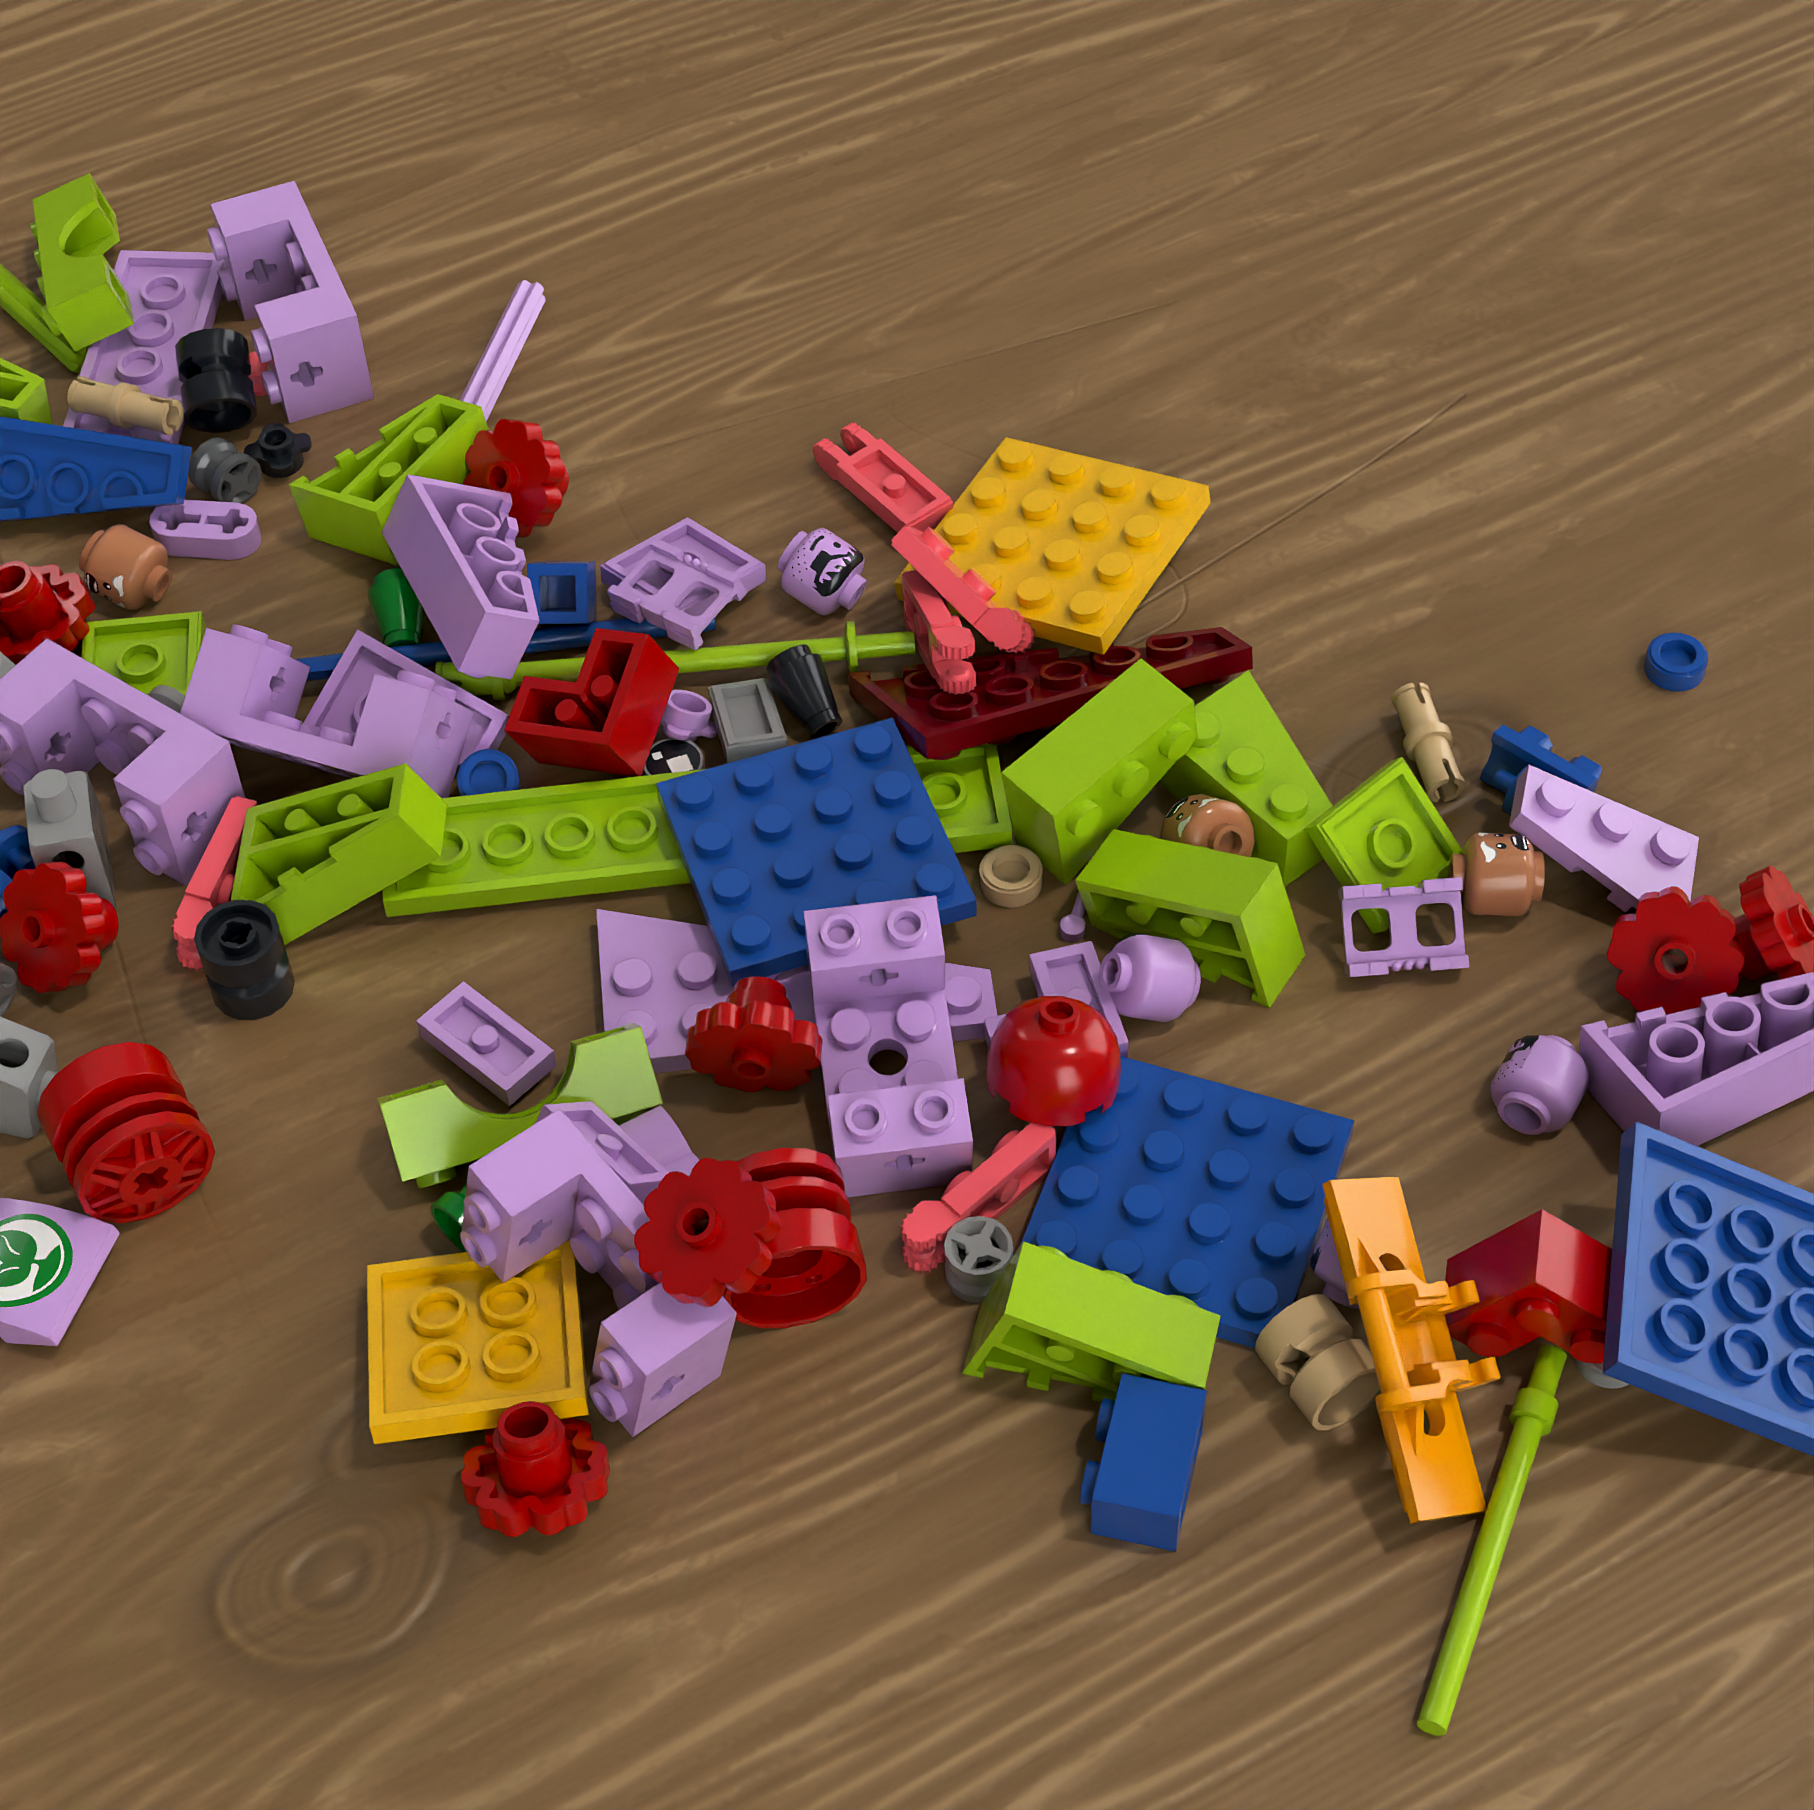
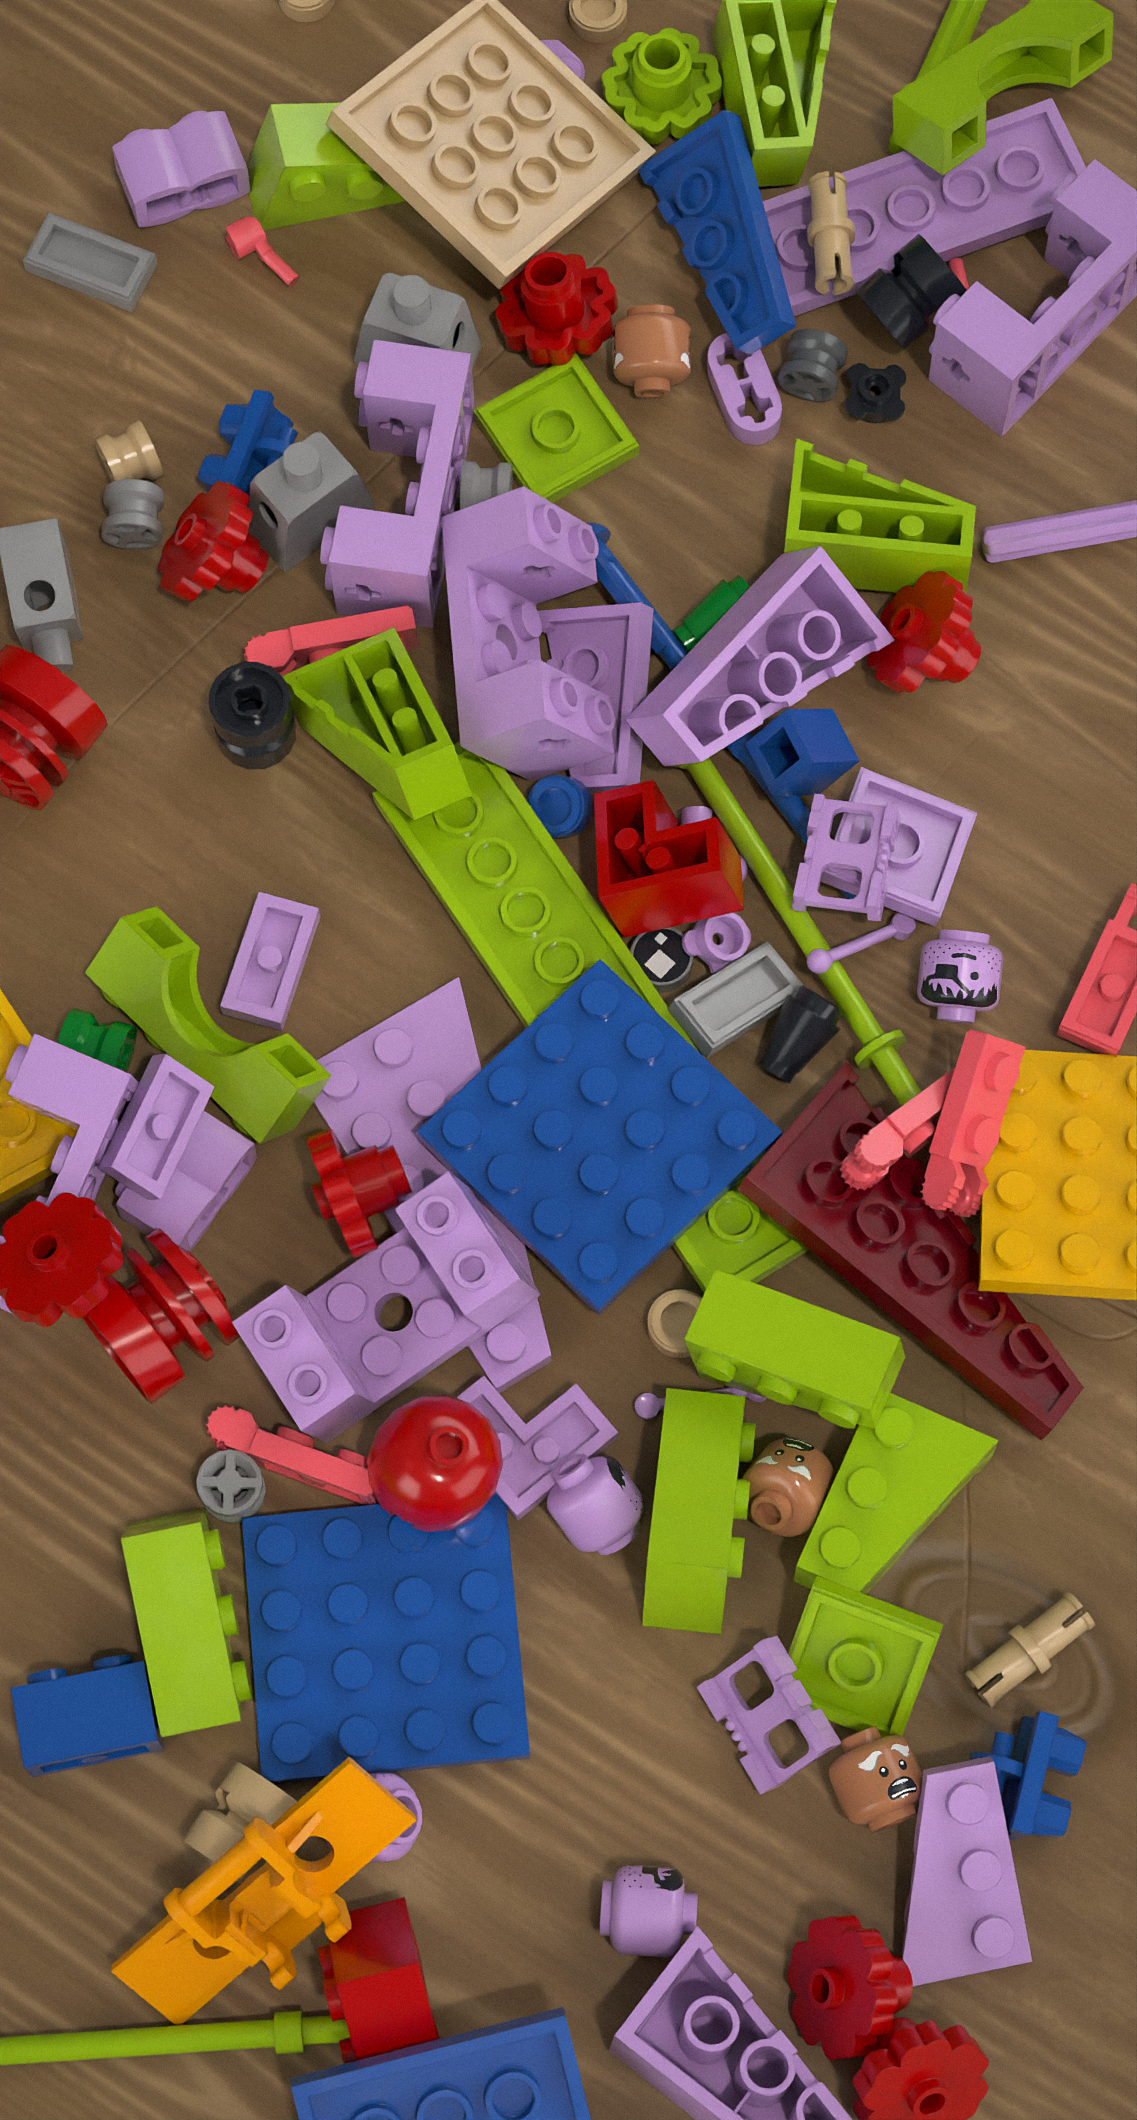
camera: 65 degrees right, 20 degrees up
(753, 645) = (900, 927): none -> lavender hinge

